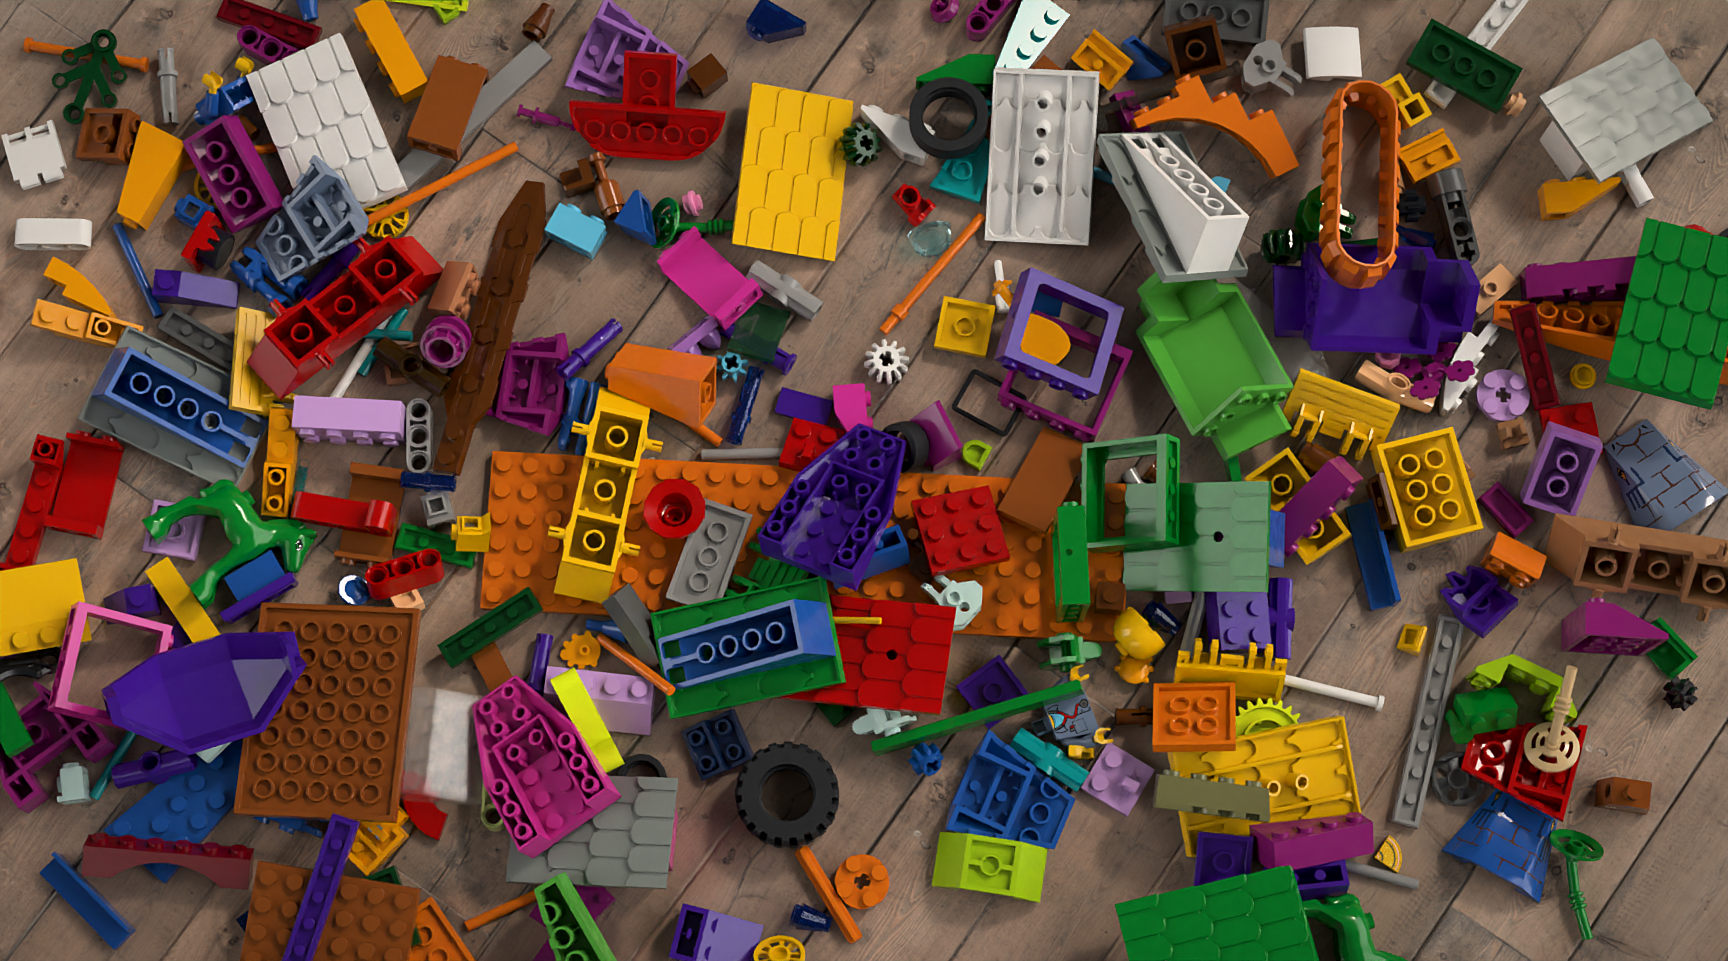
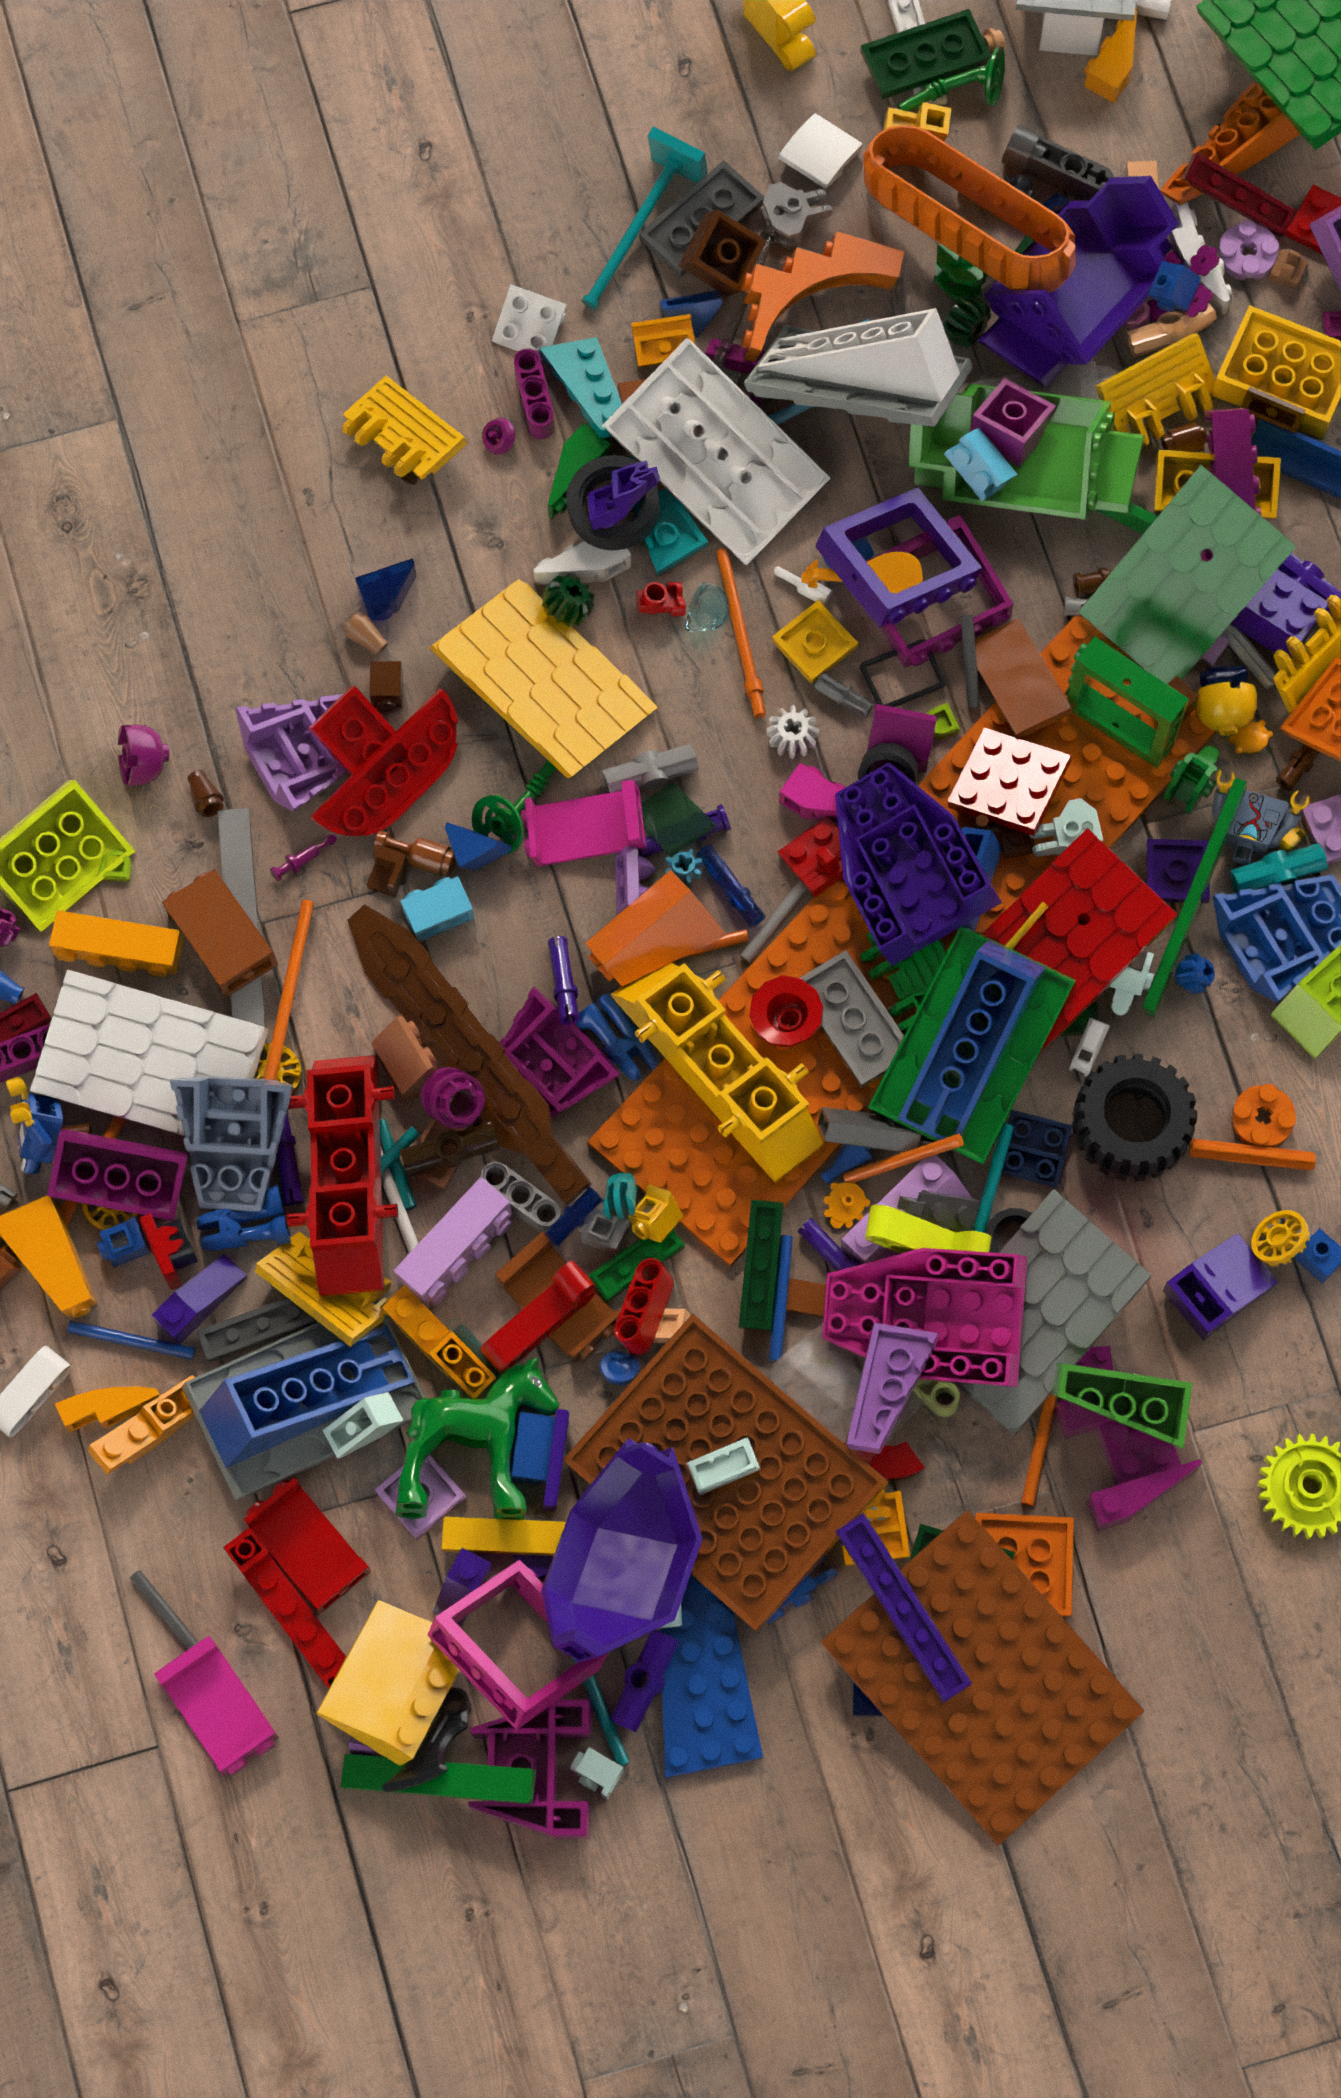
camera: 50 degrees left, 5 degrees down
(87, 901) = (722, 1844): blue panel -> none
(185, 457) = (363, 1424): none -> light aqua slope
(224, 865) = (703, 1780): dark red arch -> none
(326, 707) = (723, 1466): none -> light aqua plate
(466, 500) = (620, 1195): none -> teal arm
(466, 769) = (888, 1377): none -> medium lavender wing
(480, 657) = (780, 1298): none -> blue bar
(619, 715) = (942, 1209): none -> dark grey hinge
(669, 735) = (993, 1178): none -> teal piece
(692, 203) = (498, 787): bright pink plate -> none
(732, 33) = (364, 632): none -> medium nougat cone
(803, 406) = (772, 836): dark purple tile -> none
(809, 919) = (1261, 1188): clear blue cone -> none
(820, 726) = (1090, 1041): none -> white bar
(941, 375) = (844, 695): none -> dark grey axle
(950, 117) = (615, 500): none -> dark purple plate
(1031, 439) = (970, 661): none -> dark grey bar
(1092, 485) = (1058, 641): green piece -> none
(1175, 336) = (980, 464): none -> medium azure brick
(1225, 332) = (1013, 420): none -> magenta slope
(1421, 365) = (1174, 287): none -> blue brick
(1428, 156) = (983, 141): light orange plate -> none
(1483, 121) = (989, 75): none -> green dish
(1577, 281) = (1198, 110): magenta wedge -> none
(1582, 376) = (1283, 174): yellow plate -> none

